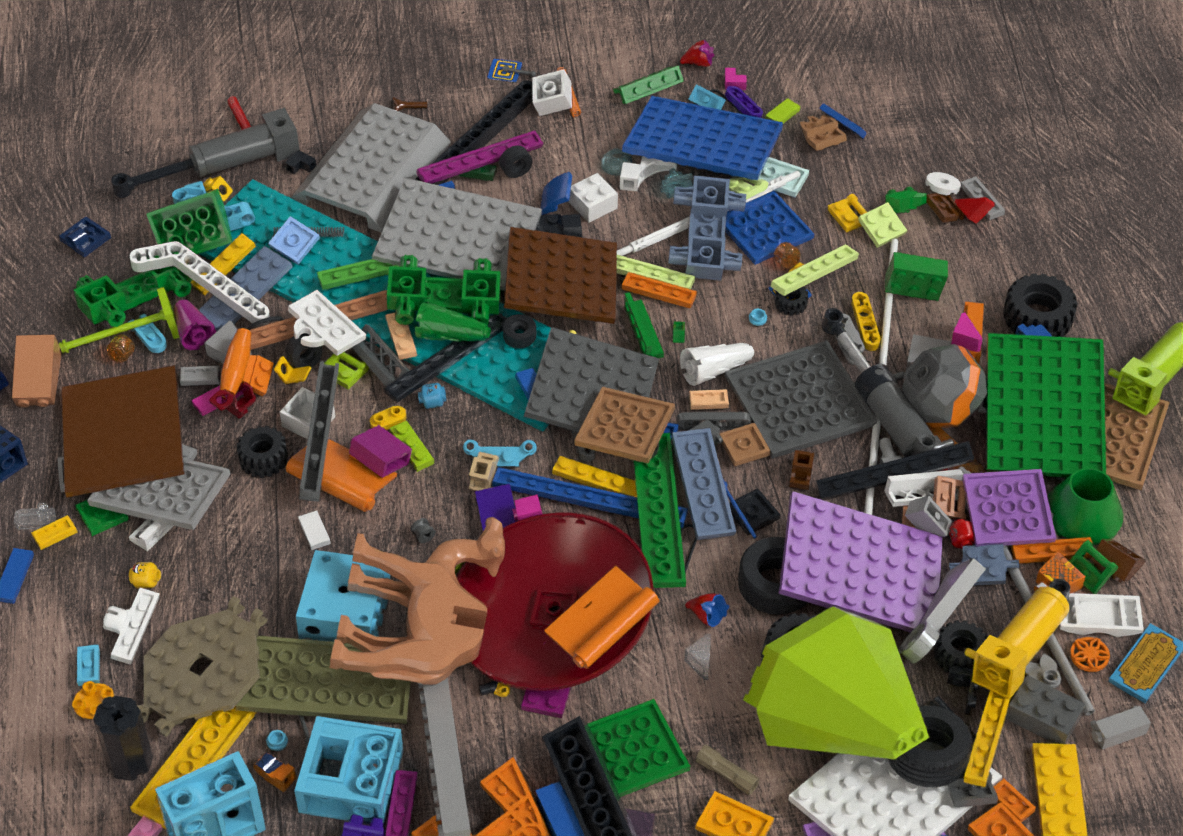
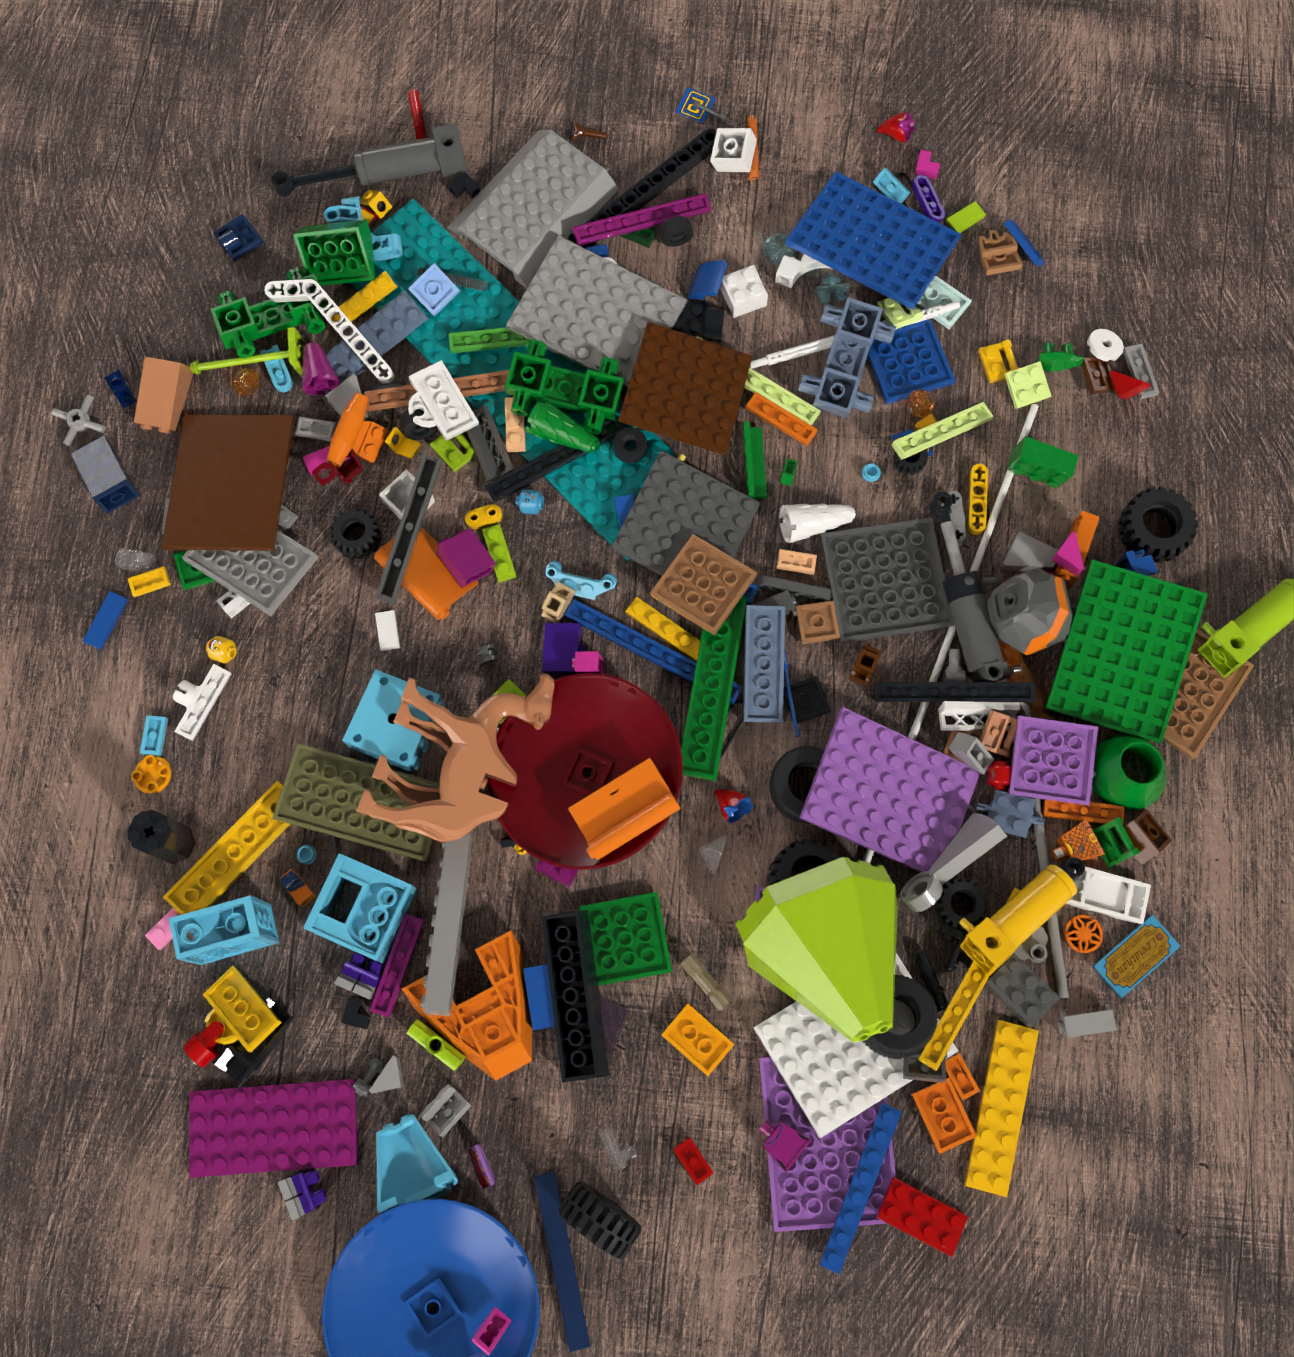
camera: 15 degrees right, 25 degrees up
(181, 694) = (267, 790): dark tan plate -> none
(649, 84) = (837, 154): fence -> none

